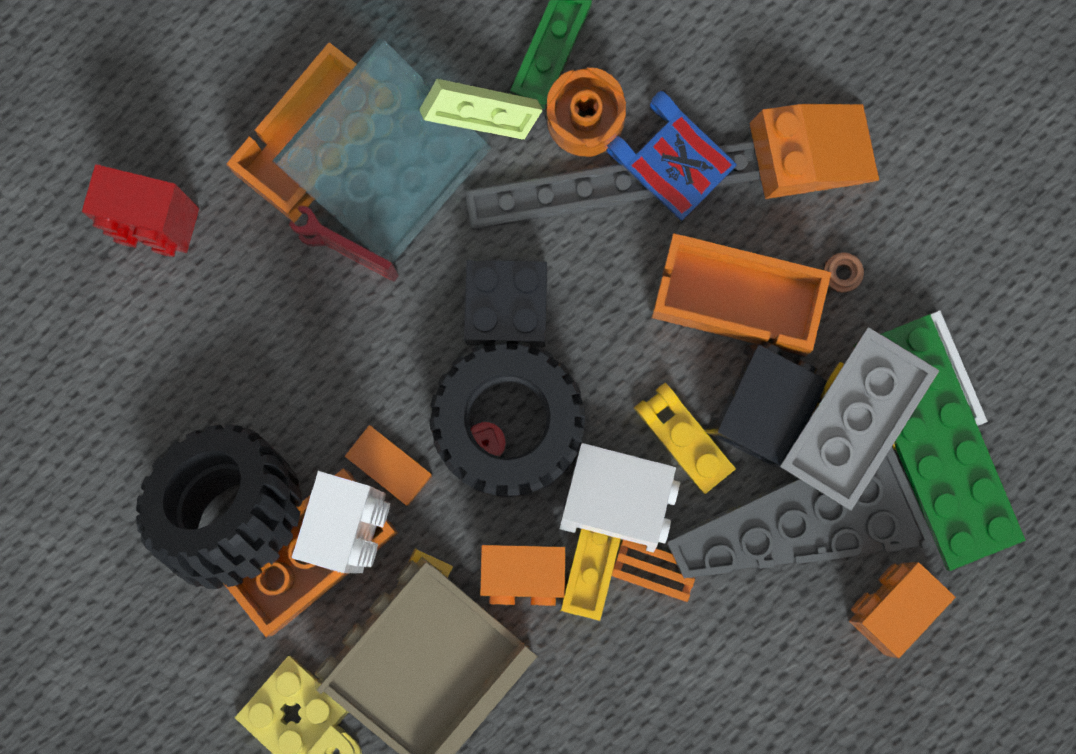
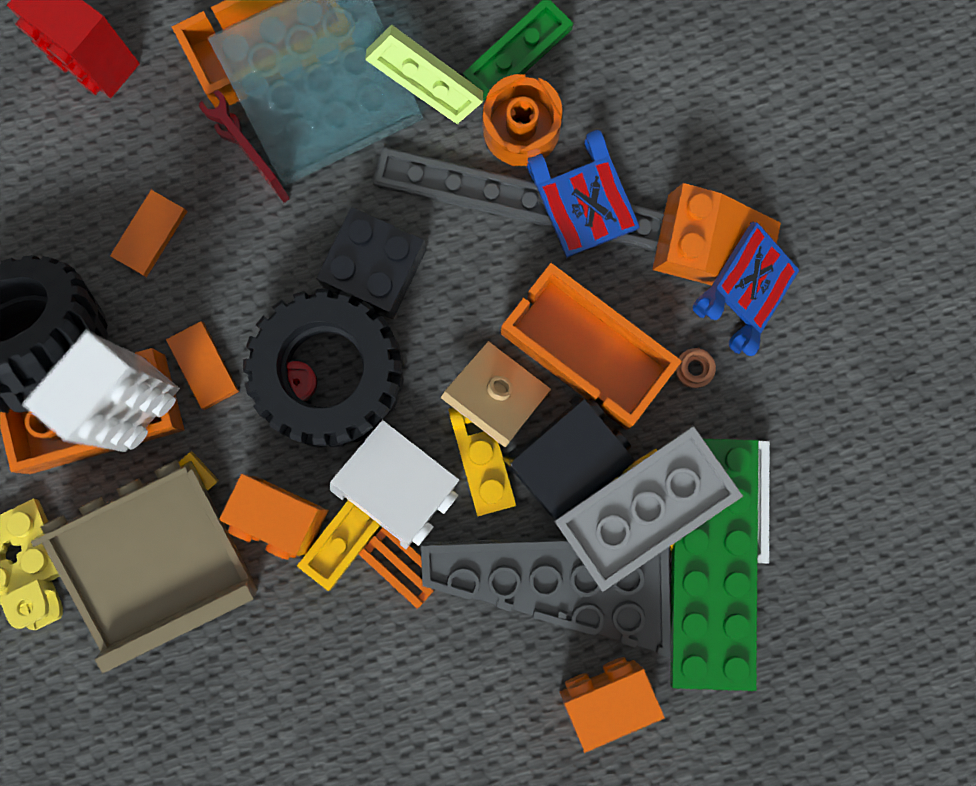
camera: 20 degrees right, 0 degrees up
(282, 364) = (148, 233): none -> orange tile
(673, 374) = (496, 394): none -> tan plate
(862, 176) = (750, 285): none -> blue flag

